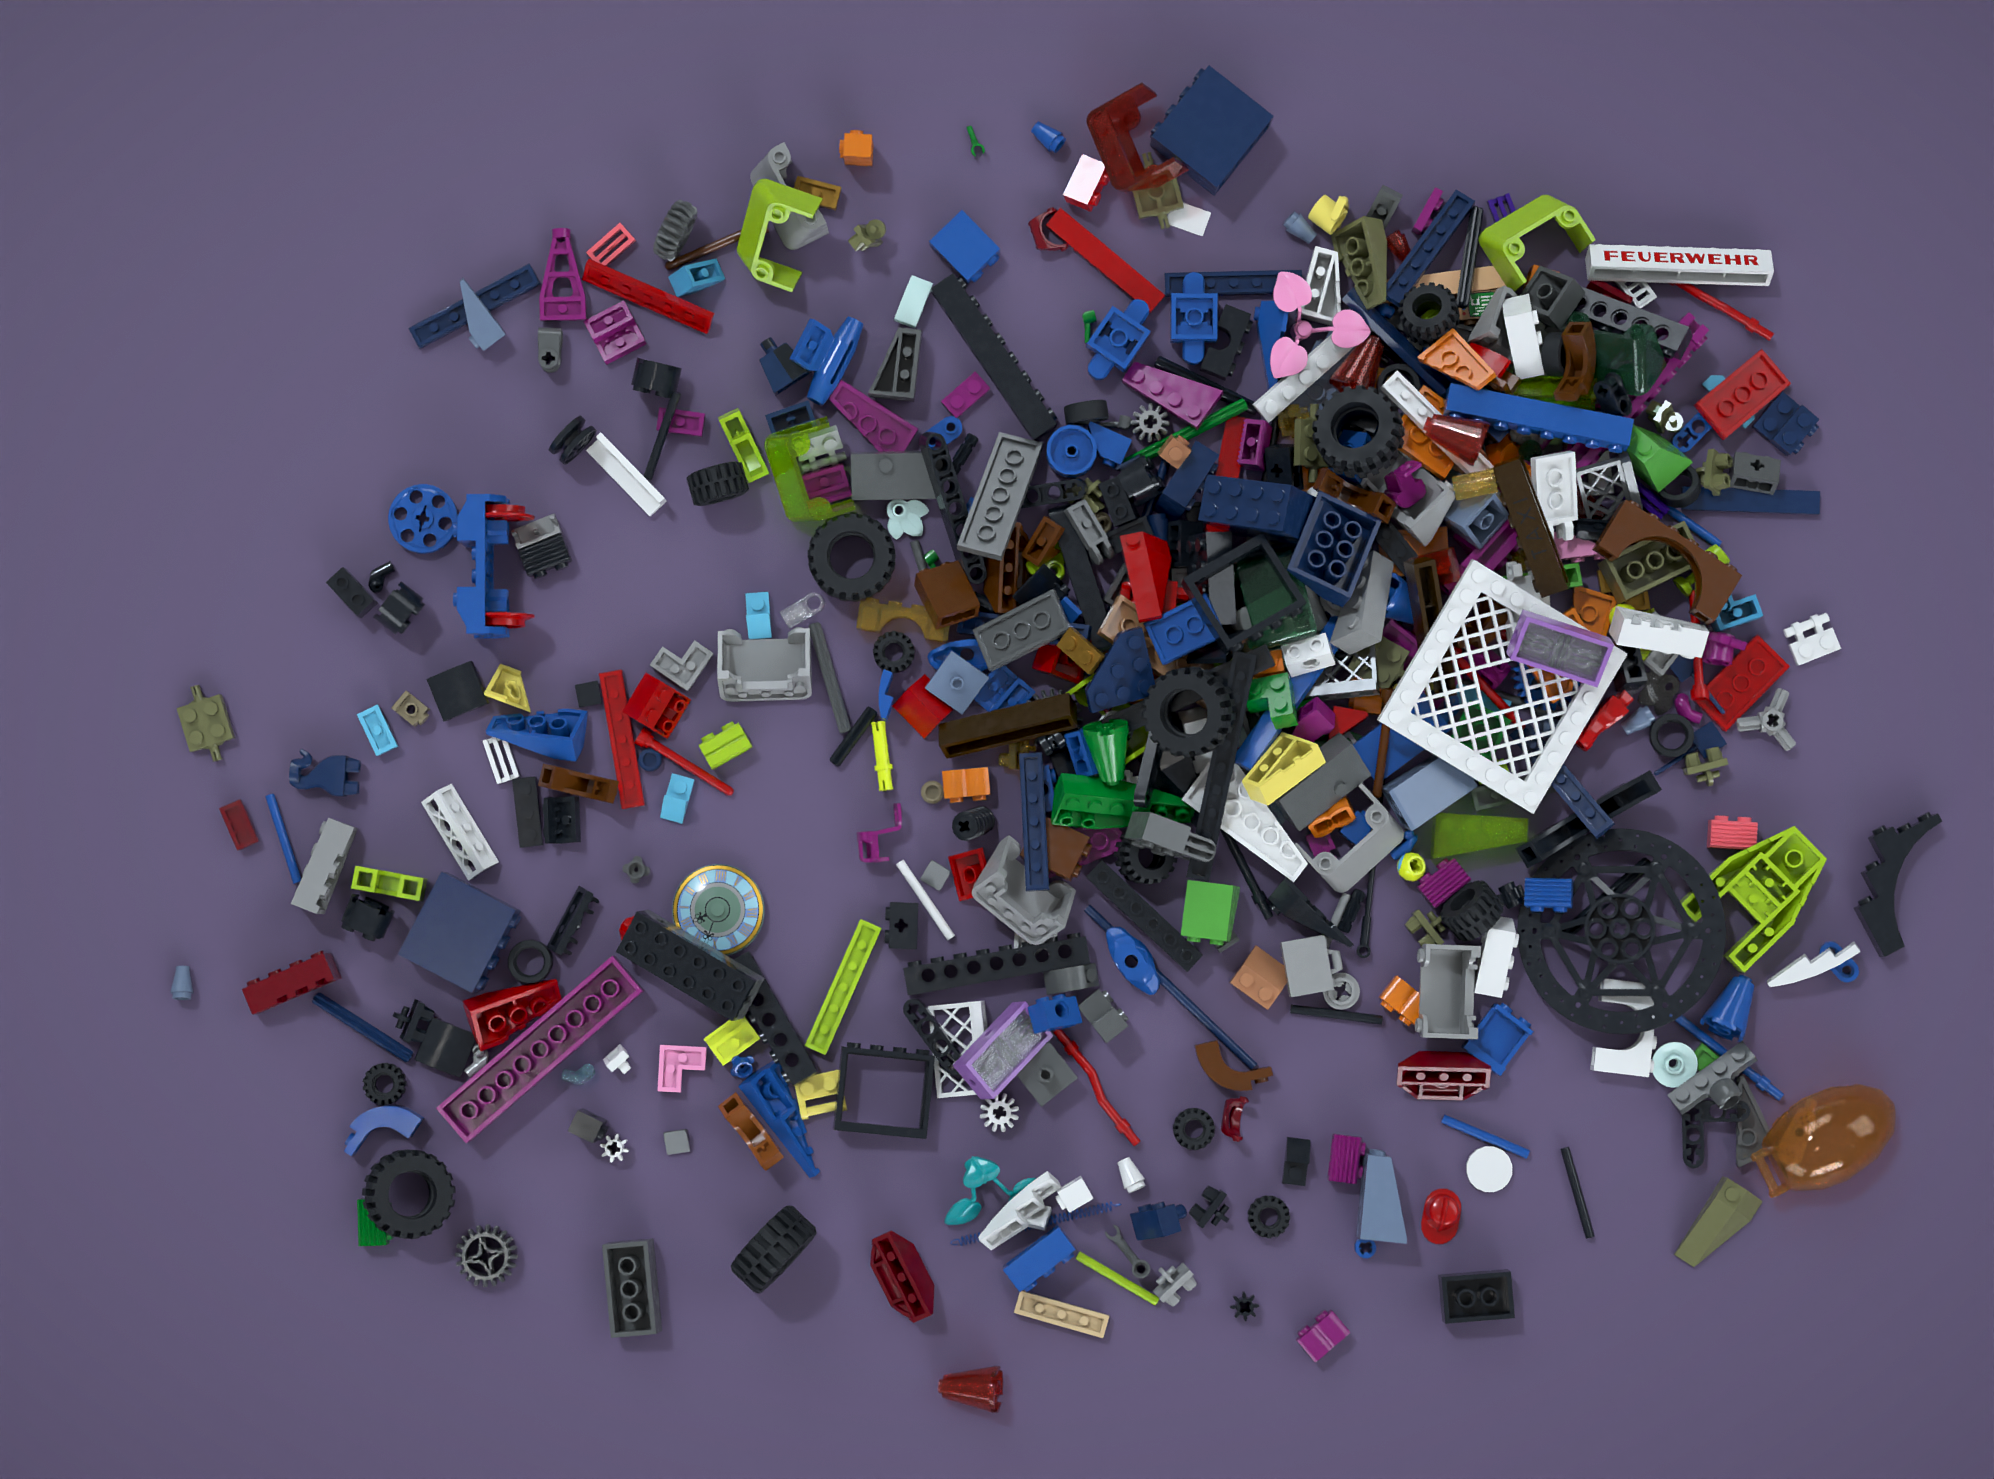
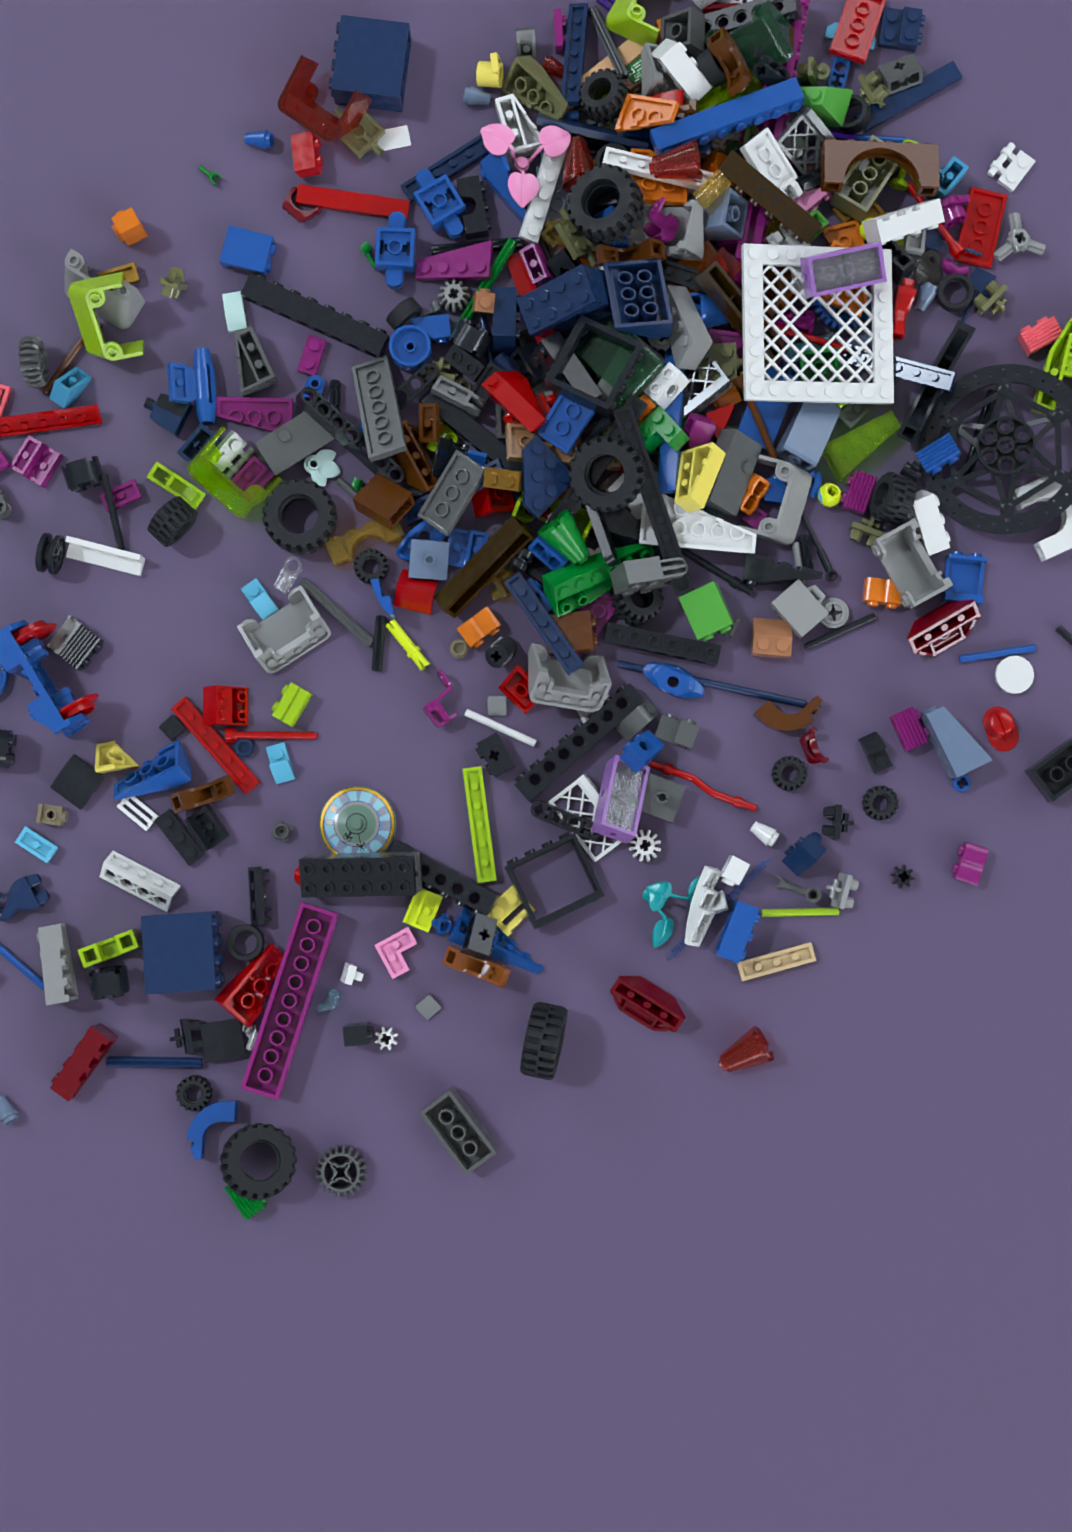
camera: 25 degrees left, 0 degrees up
(684, 670) = (230, 669): light grey plate -> none
(762, 1105) = (473, 943): none -> black brick

